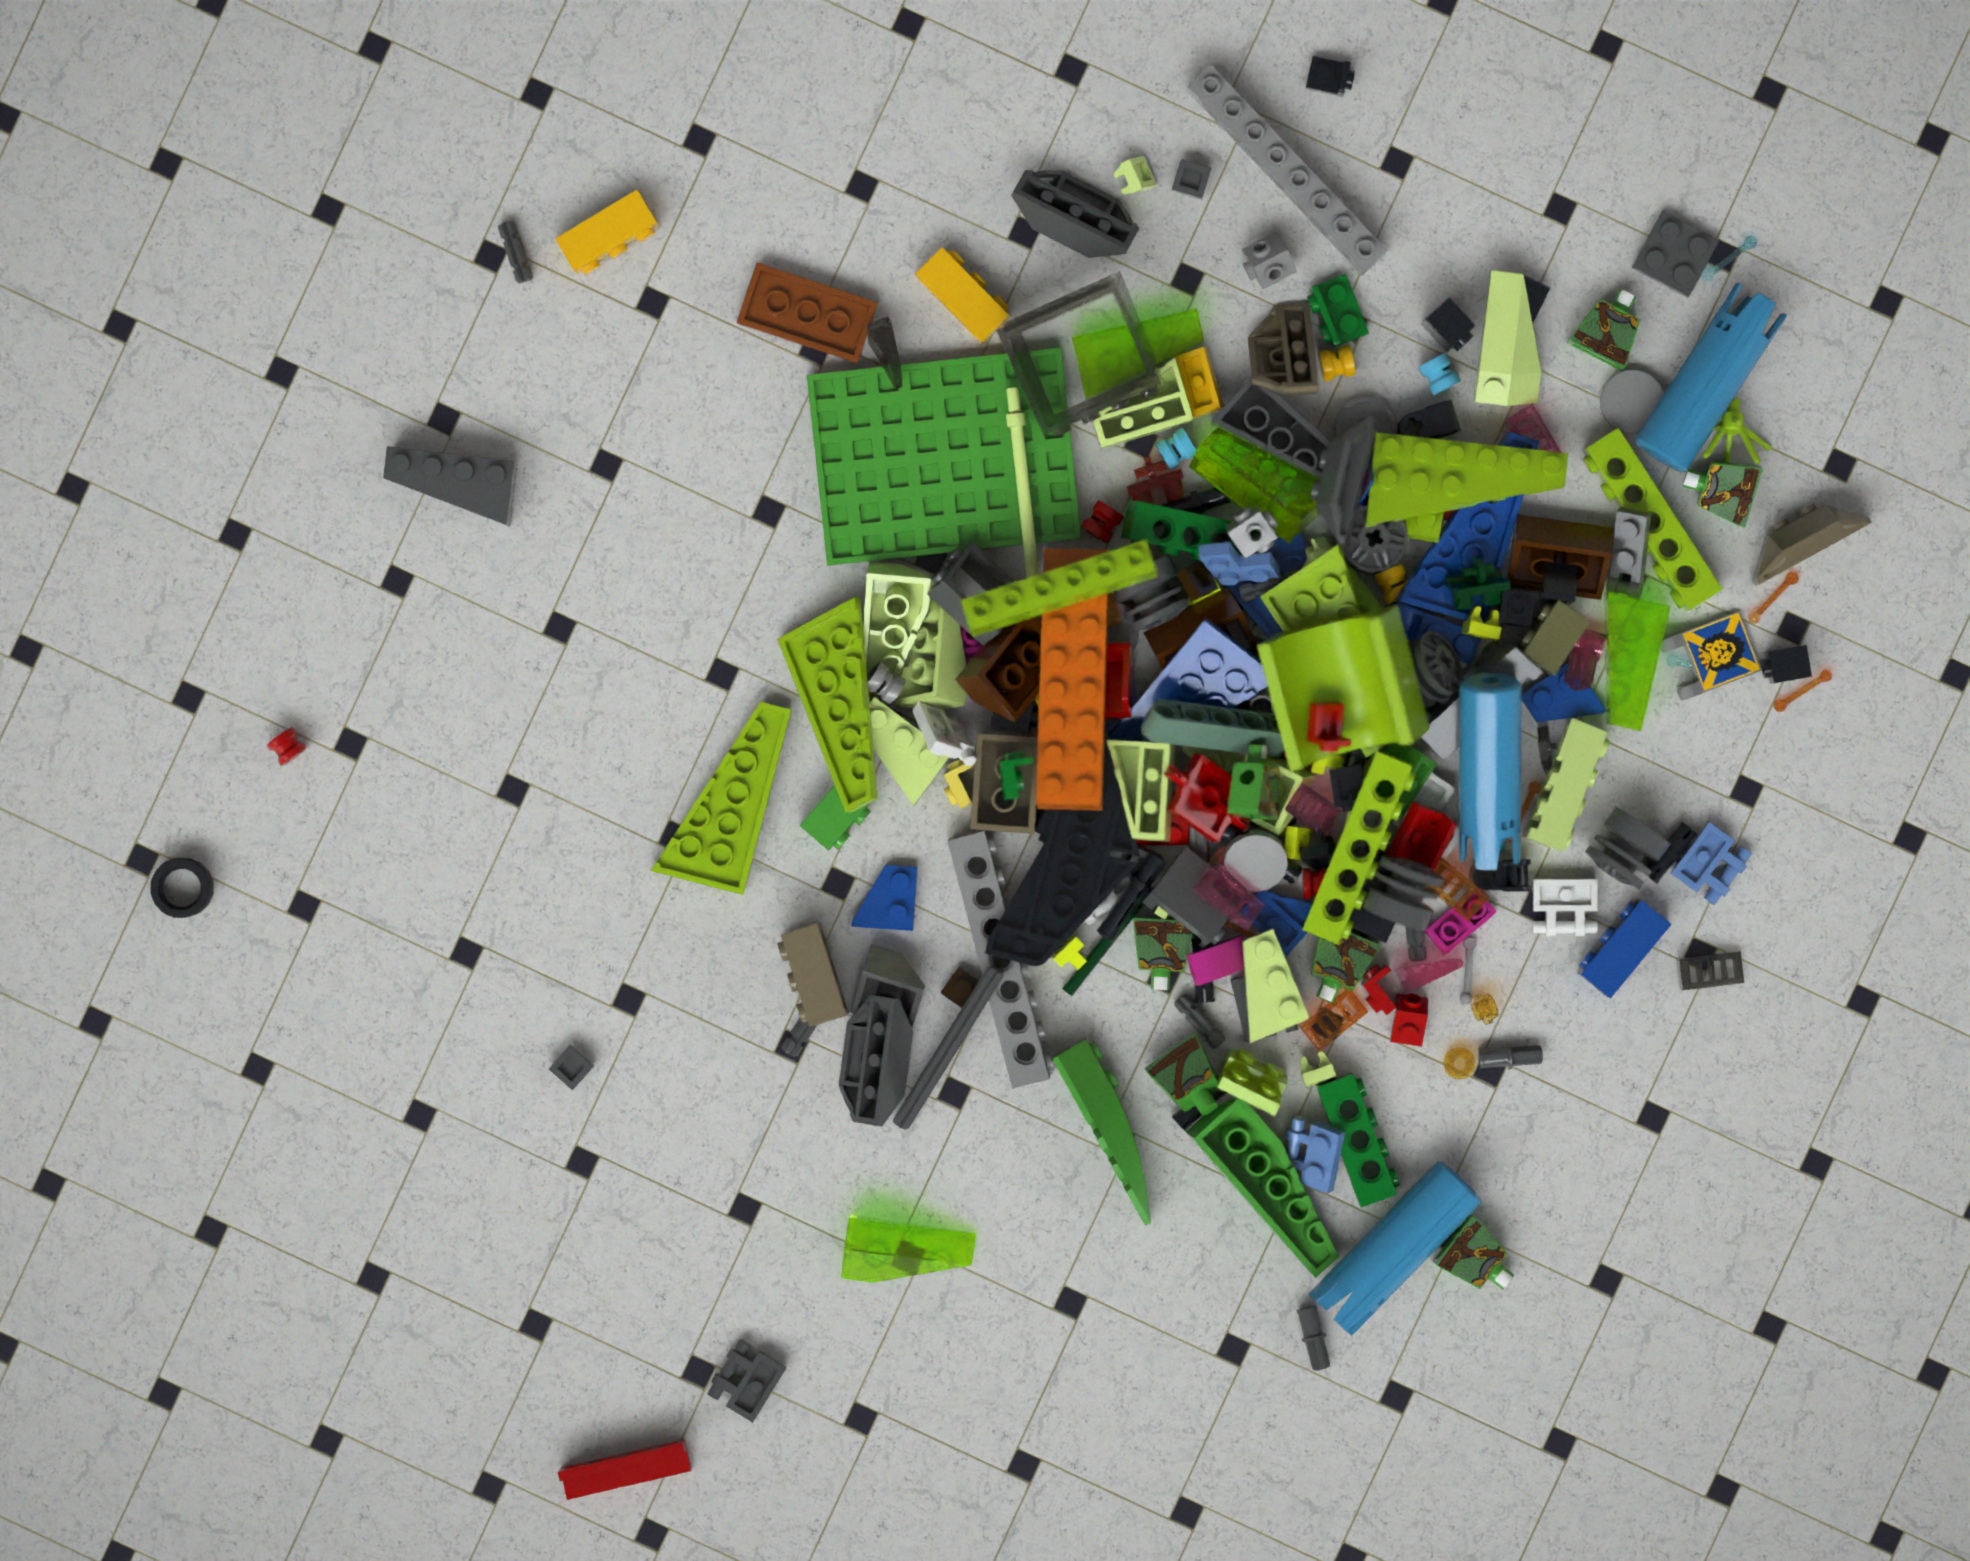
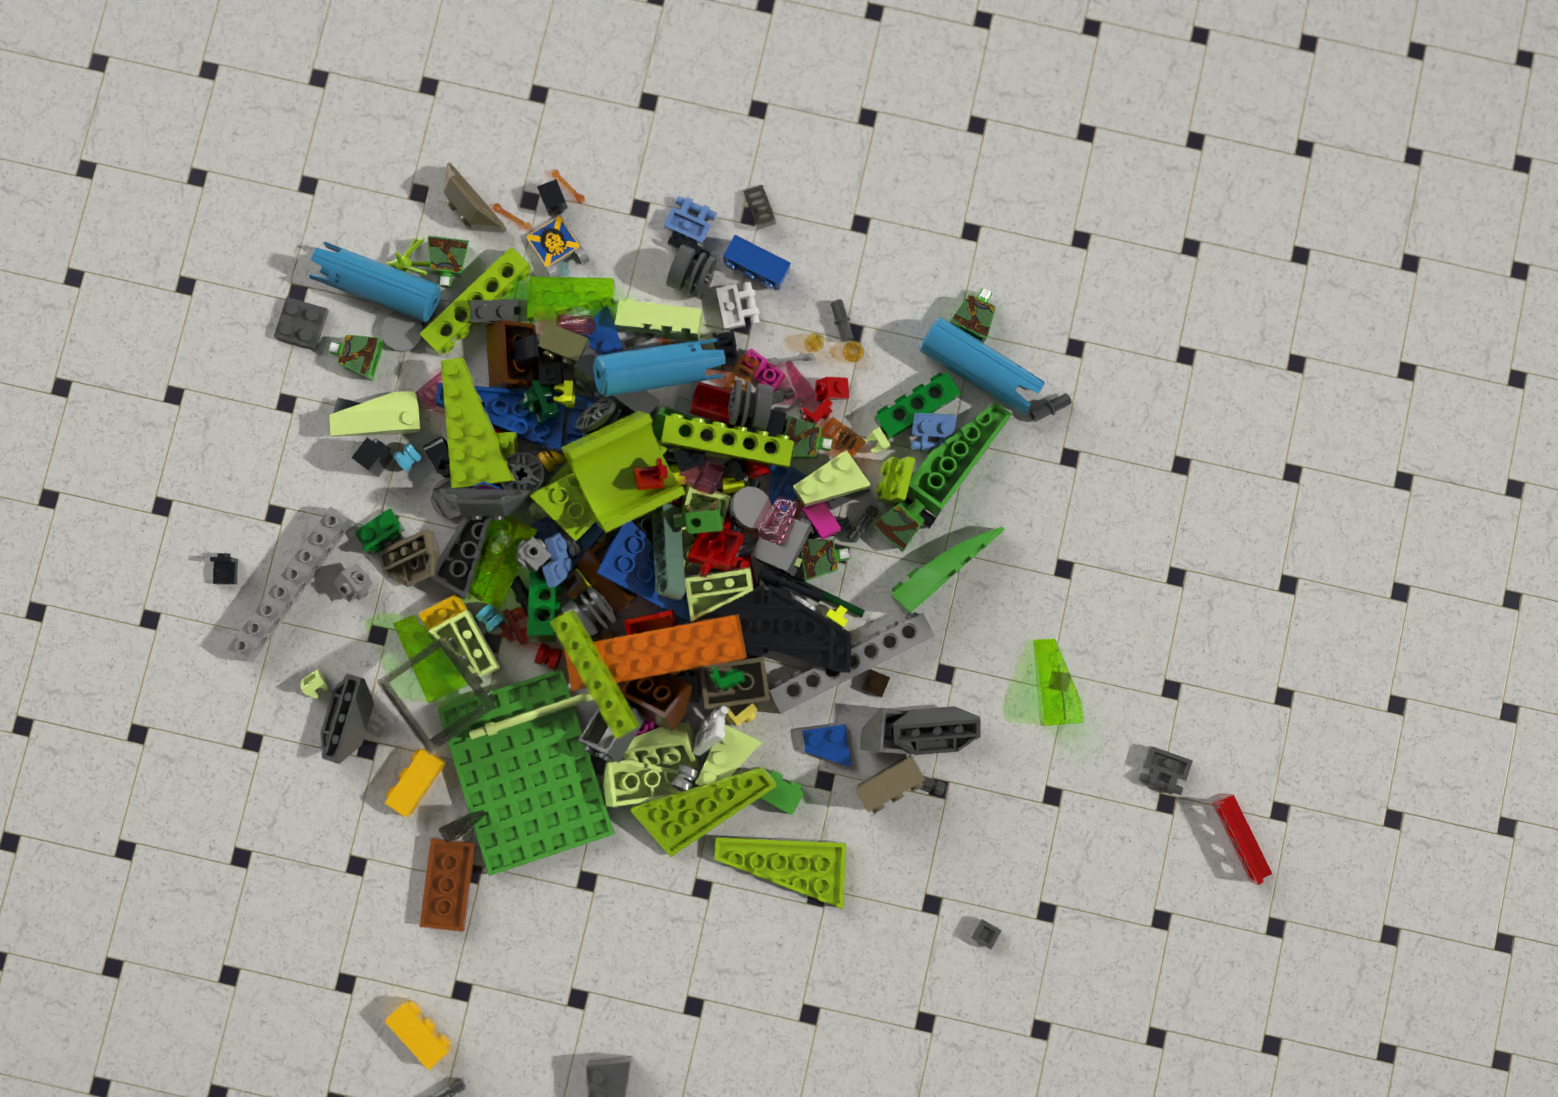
camera: 110 degrees left, 5 degrees down
(948, 1047) = (916, 683): dark grey axle -> none
(1191, 179) = (309, 646): dark grey plate -> none
(1336, 363) = (412, 523): yellow wheel -> none
(1749, 243) = (286, 278): clear light blue hinge -> none

